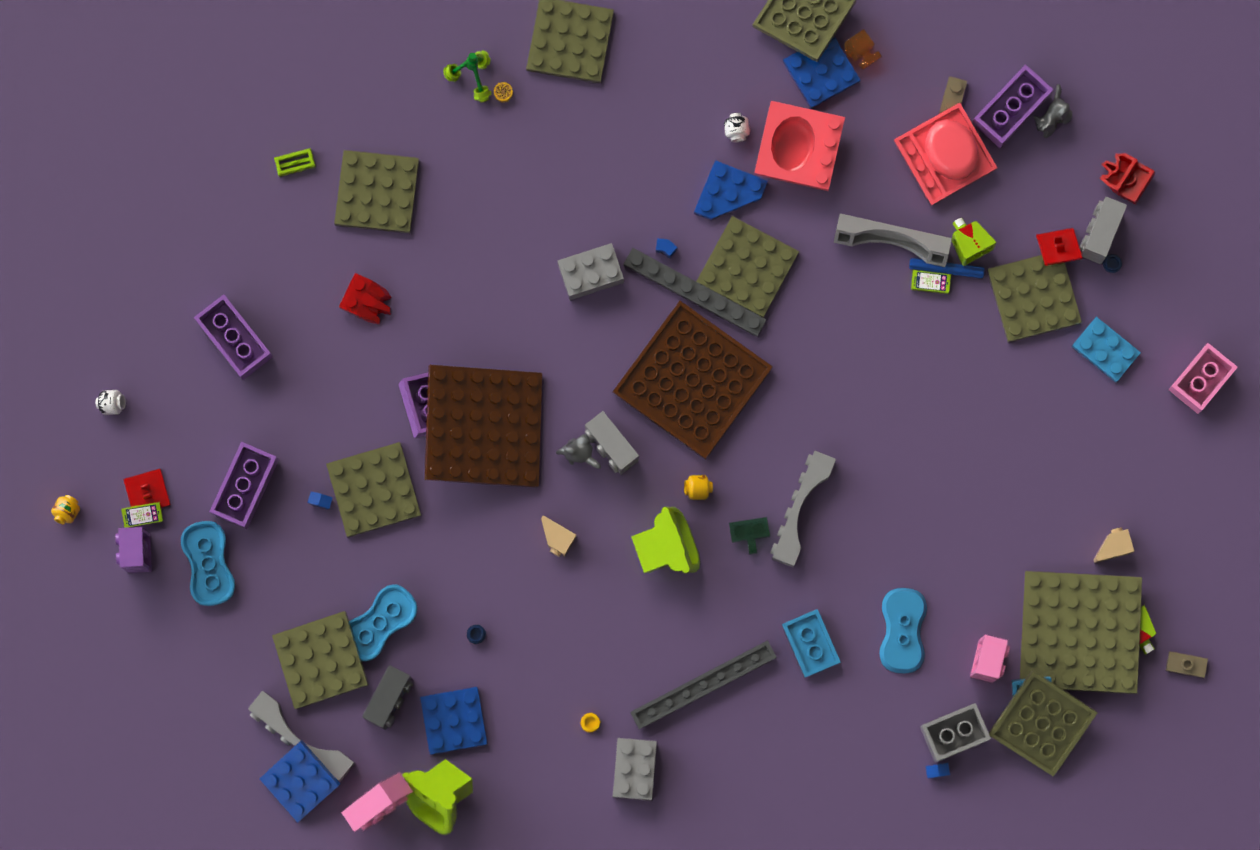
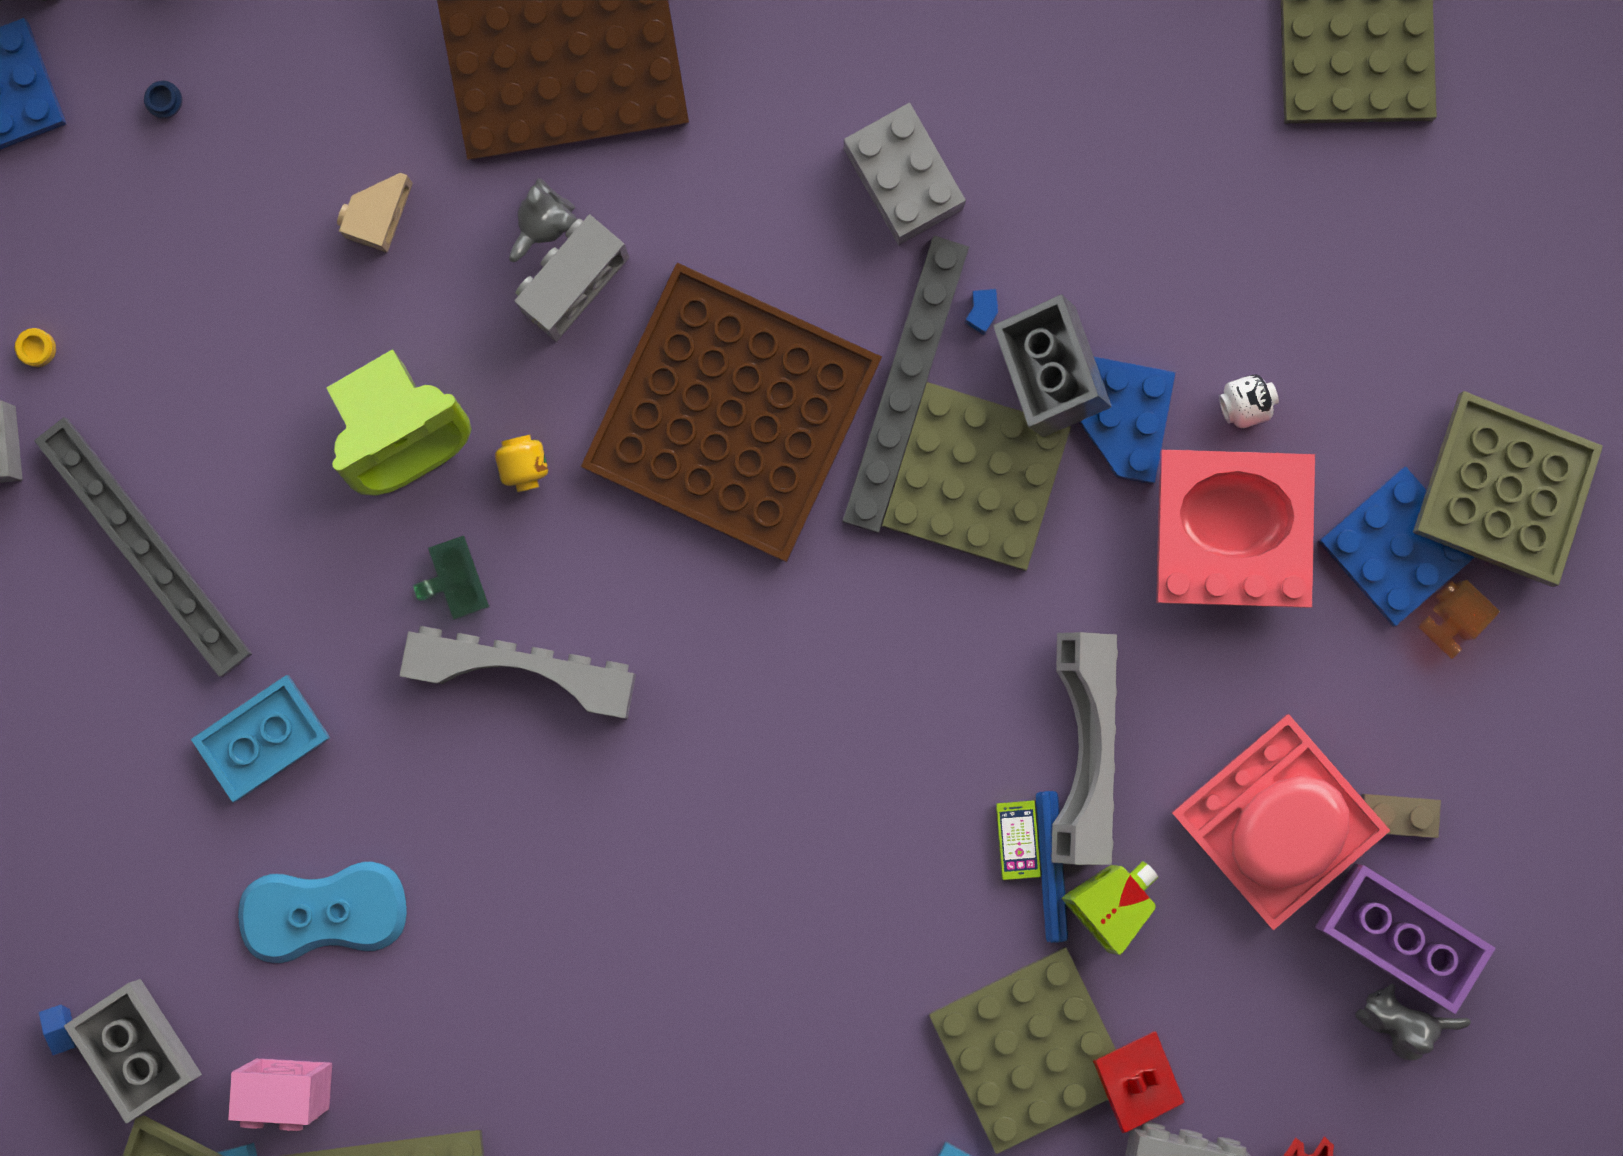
camera: 80 degrees right, 5 degrees up
(702, 217) = (1052, 366): none -> dark grey brick

